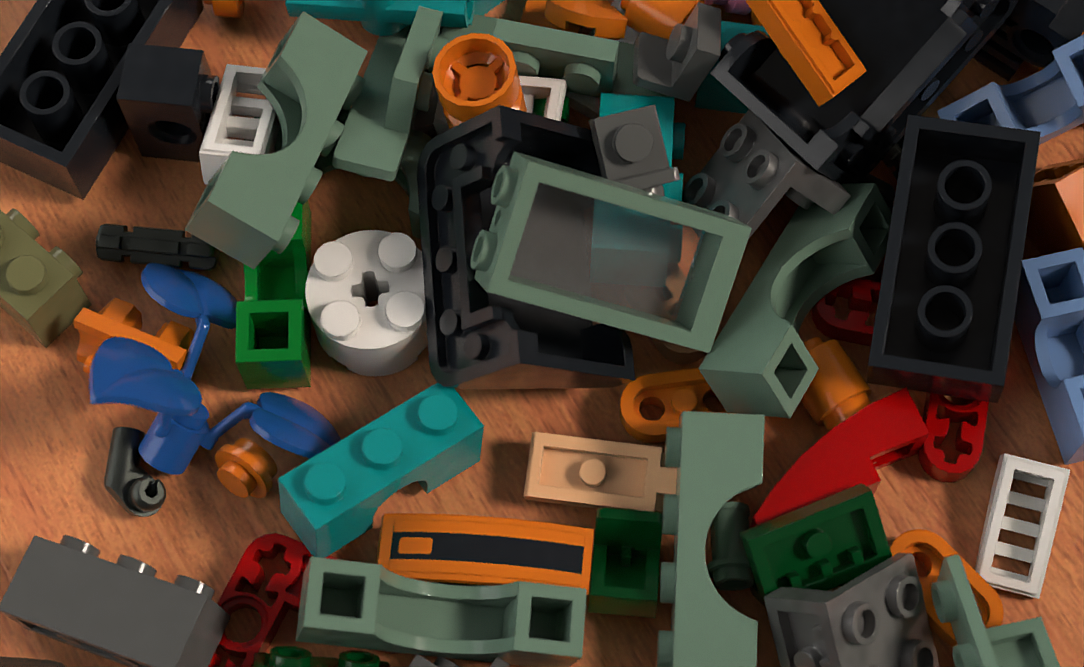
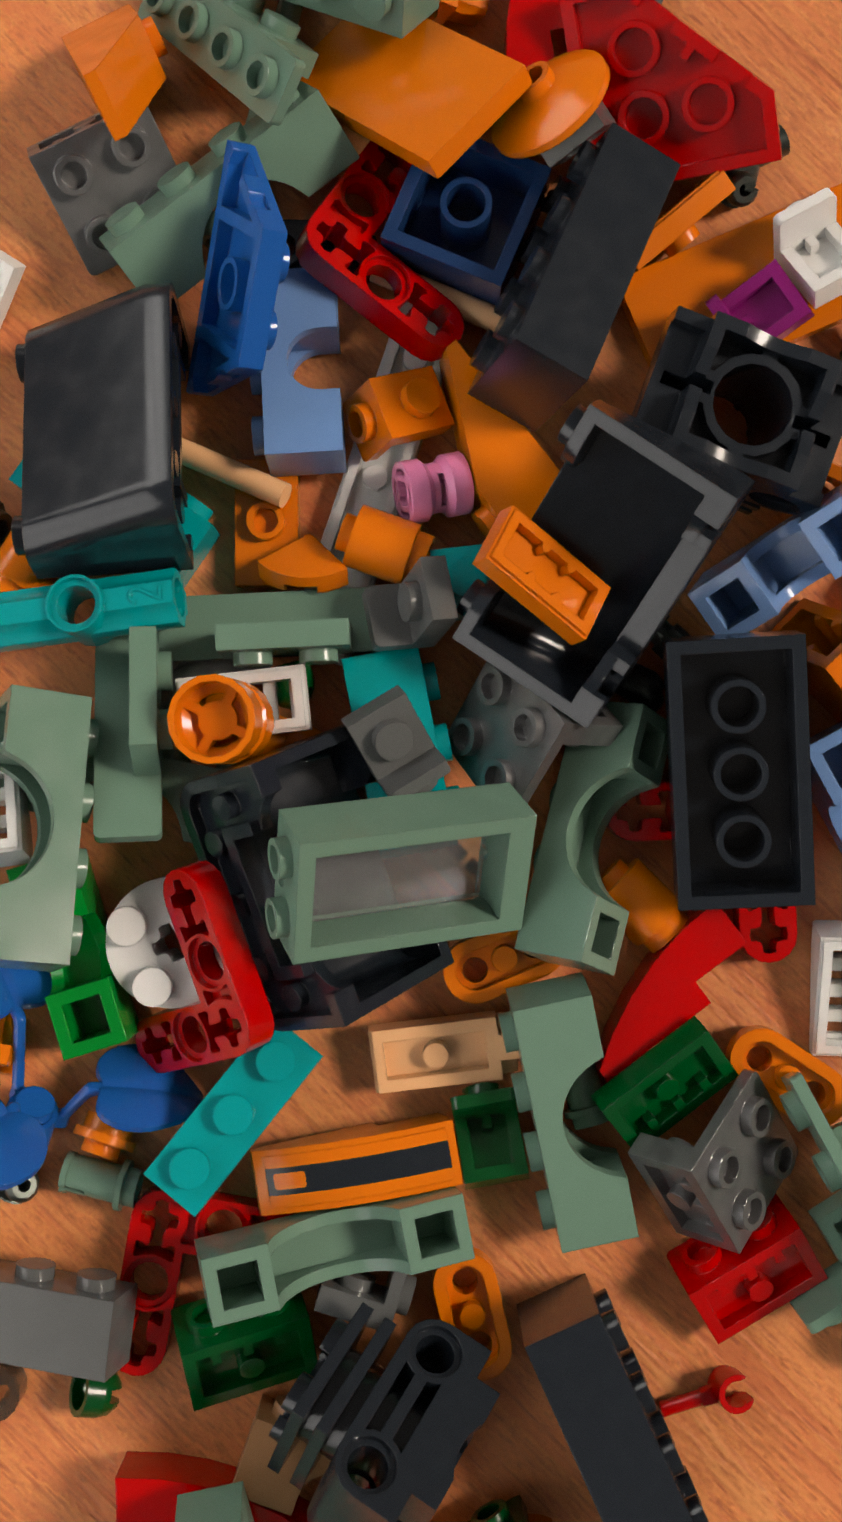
camera: 15 degrees left, 20 degrees up
(226, 512) = (101, 1180): none -> sand green pin
(408, 251) = (203, 918): none -> red beam

